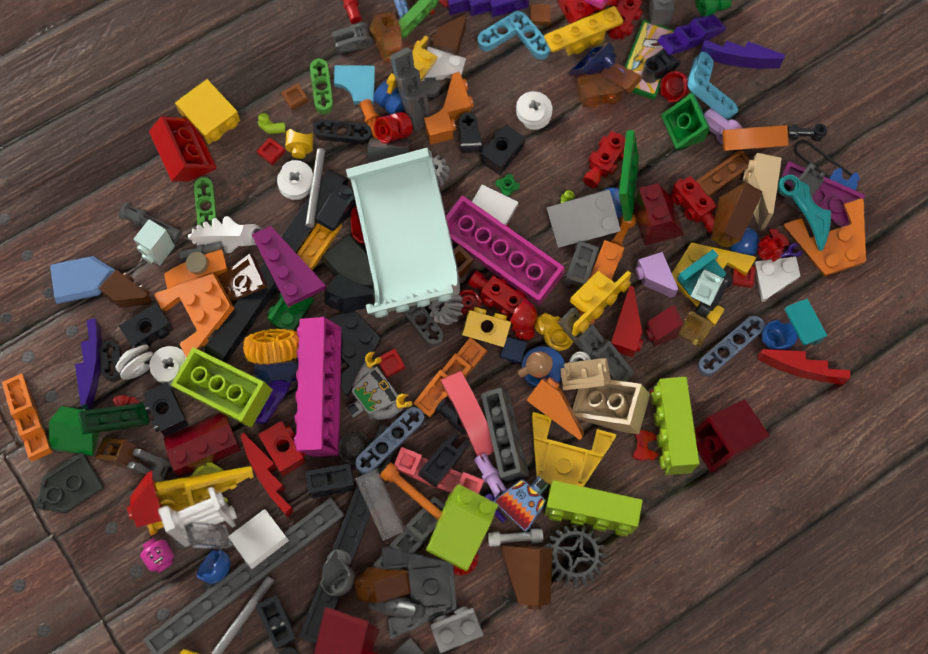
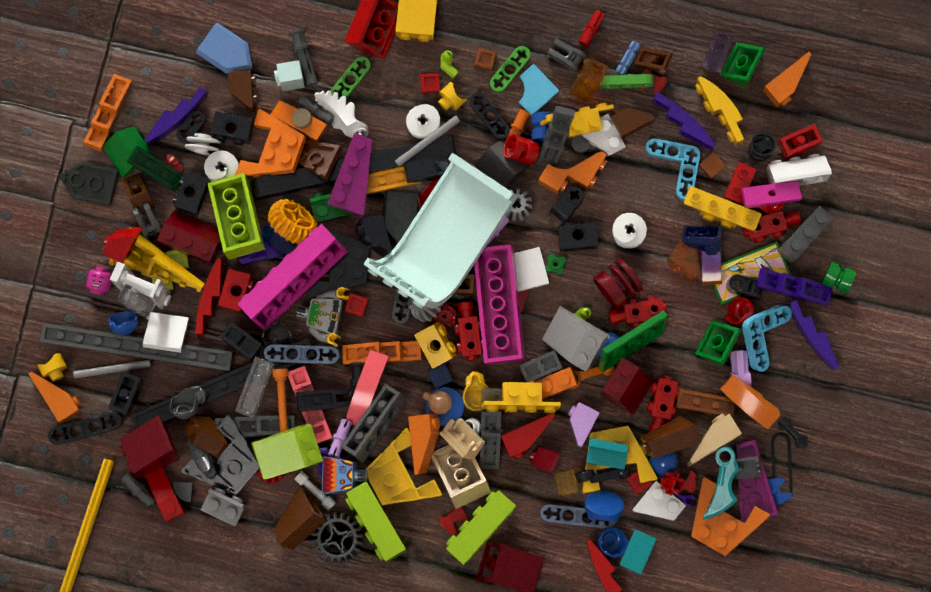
camera: 50 degrees right, 10 degrees up
(524, 320) = (463, 365): red hair -> none
(570, 149) = (619, 282): none -> dark red wheel
(707, 287) = (596, 465): light aqua brick -> none
(743, 315) = (604, 506): none -> blue tile

